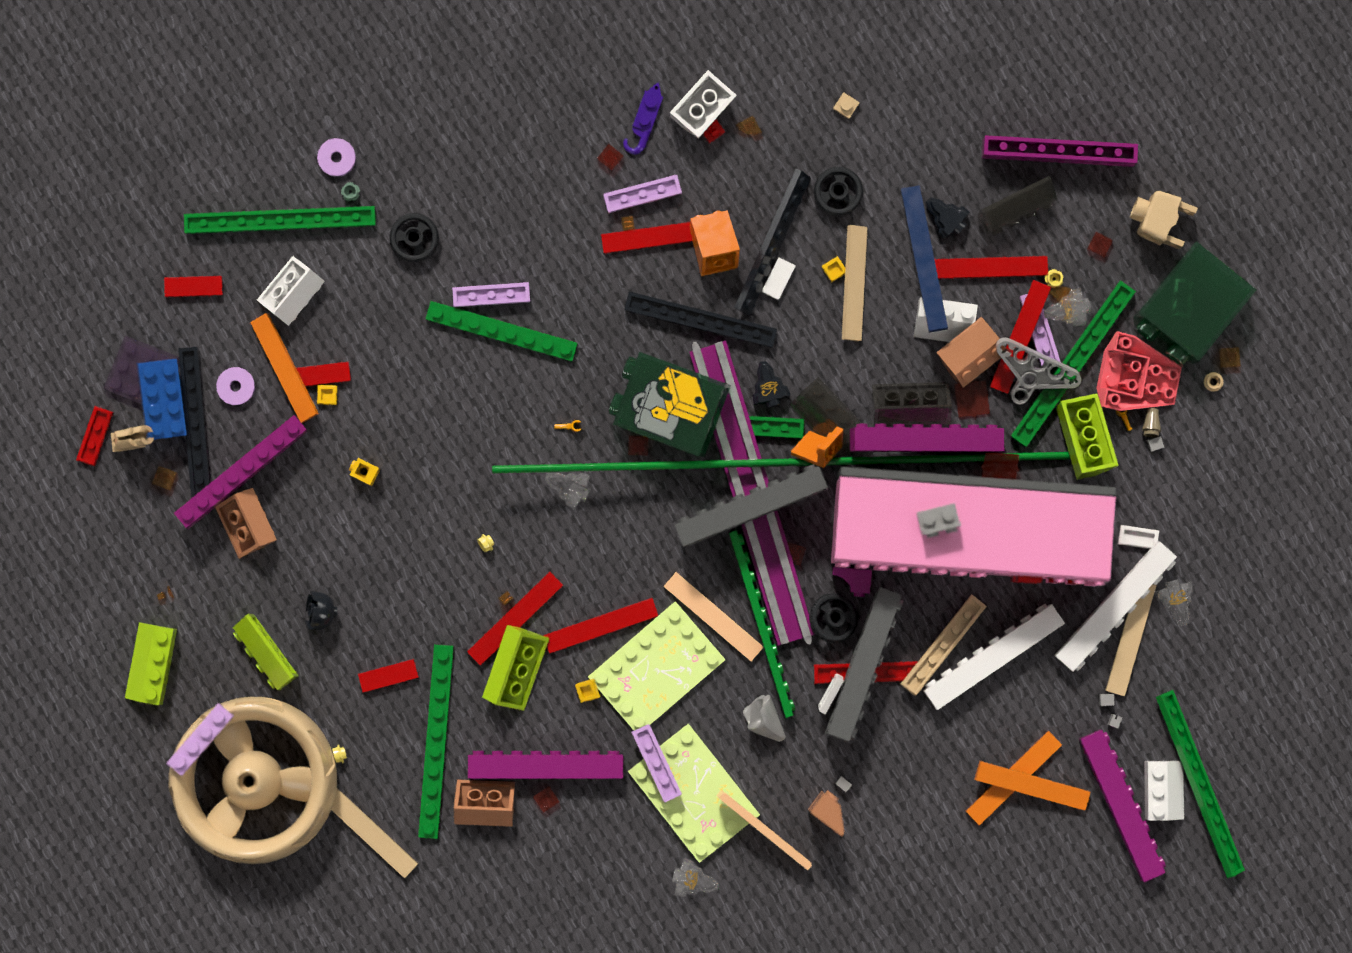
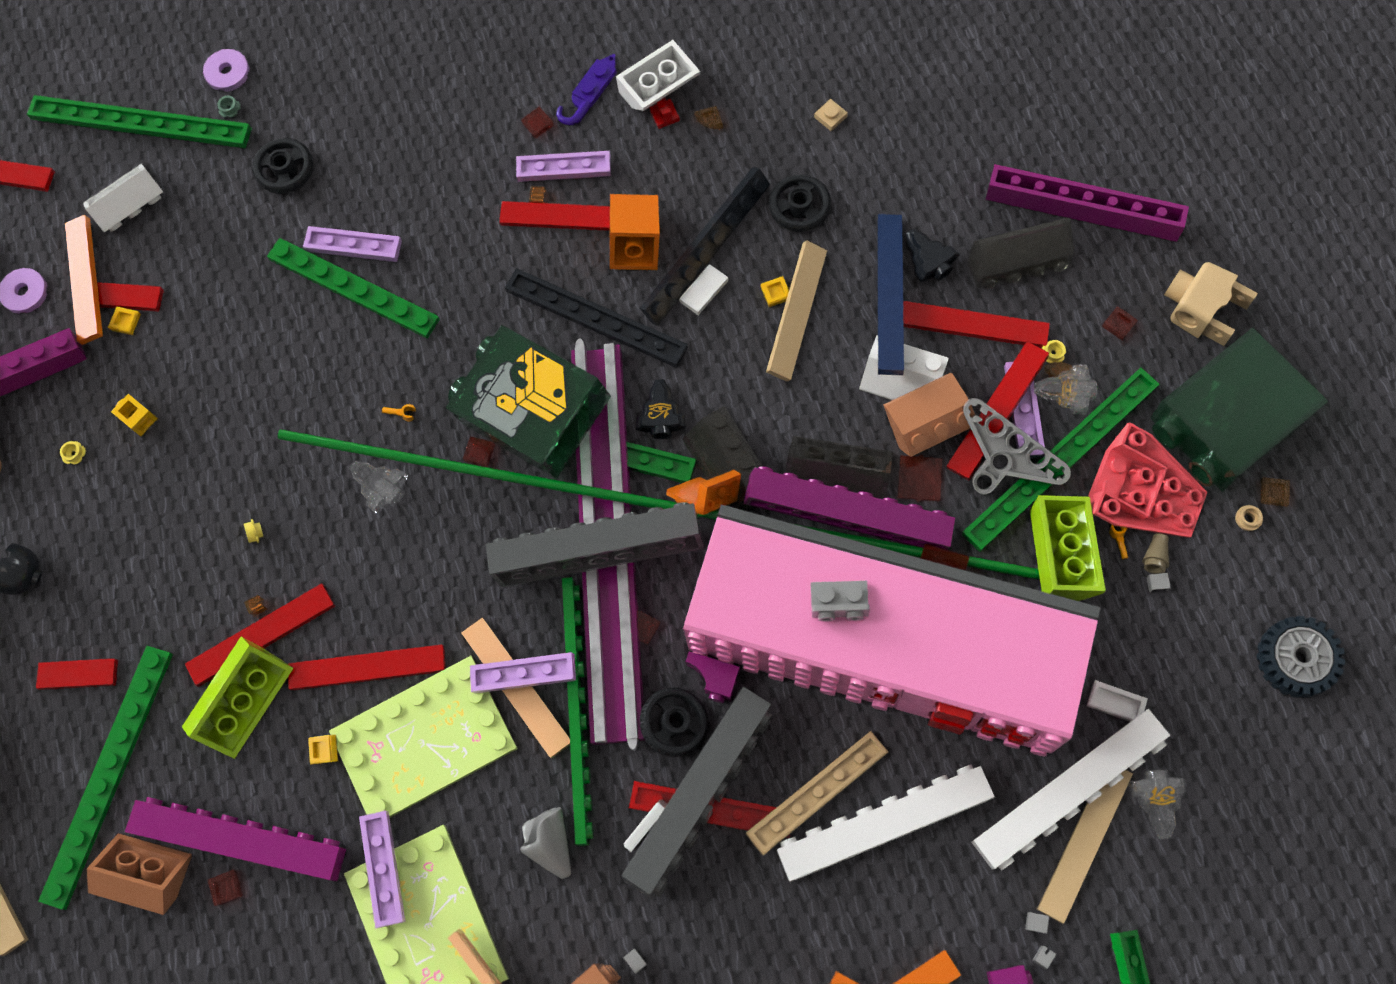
camera: 20 degrees right, 15 degrees down
(320, 510) = (67, 450): none -> light yellow plate
(719, 607) = (523, 673): none -> lavender plate
(1274, 473) = (1319, 649): none -> wheel

